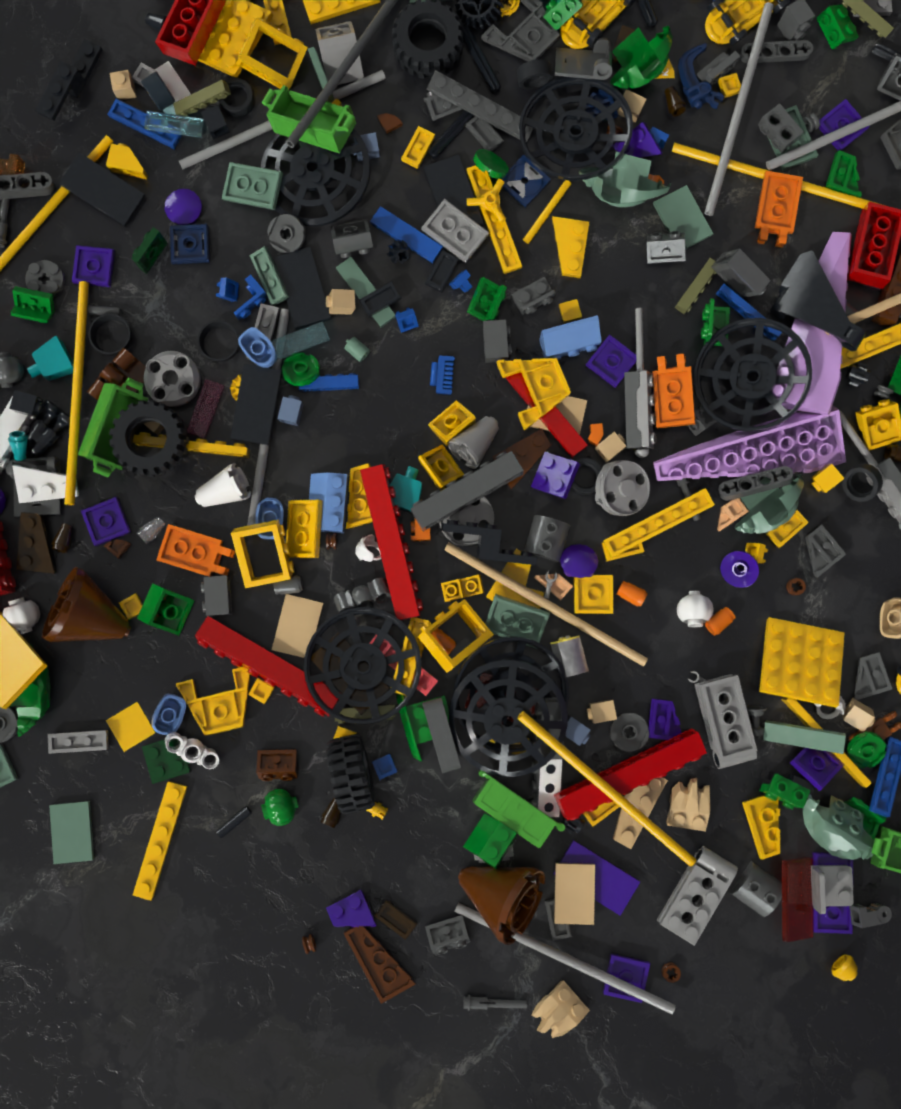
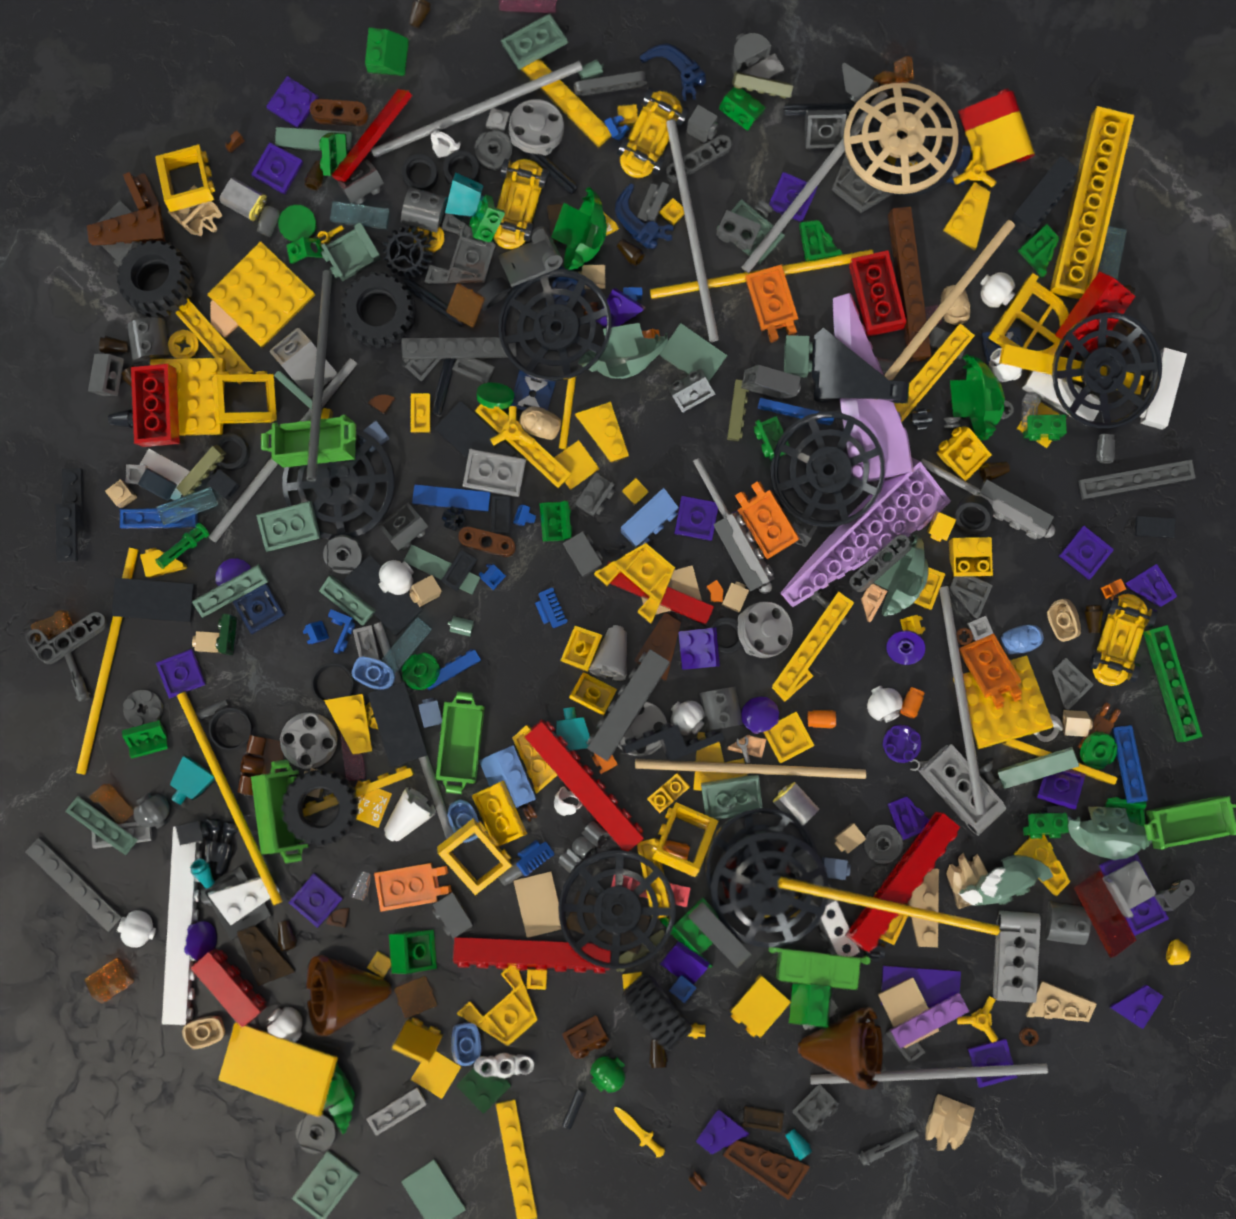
camera: 30 degrees left, 0 degrees up
(125, 246) = (205, 642): none -> tan brick
(127, 157) = (189, 541): none -> green pin
(127, 689) = (418, 1040): none -> yellow slope
(147, 651) = (415, 997): none -> clear orange piece
(172, 215) = (230, 590): none -> sand green tile
(197, 466) = (372, 806): none -> yellow sticker
(218, 381) = (352, 721): none -> yellow wing
(283, 880) = (645, 1137): none -> yellow sword
(302, 448) = (460, 742): none -> bright green container
(314, 577) = (530, 855): none -> blue piece
(321, 277) = (395, 577): none -> white plant
(398, 744) = (684, 962): none -> dark purple tile
(413, 278) = (478, 536): none -> reddish brown piece
(415, 959) = (798, 1144): none -> teal cone
(444, 818) = (759, 1007): none -> yellow panel
(506, 71) = (465, 305): none -> clear orange piece
(515, 530) = (688, 717): none -> white plant
(518, 208) = (540, 422): none -> tan piece
(533, 262) = (578, 463): none -> yellow sticker
(589, 910) = (929, 1020): none -> medium lavender plate
(636, 934) = (981, 1019): none -> yellow piece
(692, 652) = (902, 743): none -> dark purple dish
(715, 958) = (1060, 1003): none -> tan wing
(720, 822) = (1004, 882): none -> sand green animal
(766, 643) = (962, 701): none -> light grey piece
(775, 263) = (797, 355): none -> sand green brick
(785, 997) = (1138, 1005): none -> dark purple wing
(807, 628) = (991, 669): none -> orange tile
(815, 586) = (980, 628): none -> light grey plate
(840, 518) = (971, 556): none -> yellow slope
(847, 616) = (1021, 639): none -> medium blue piece

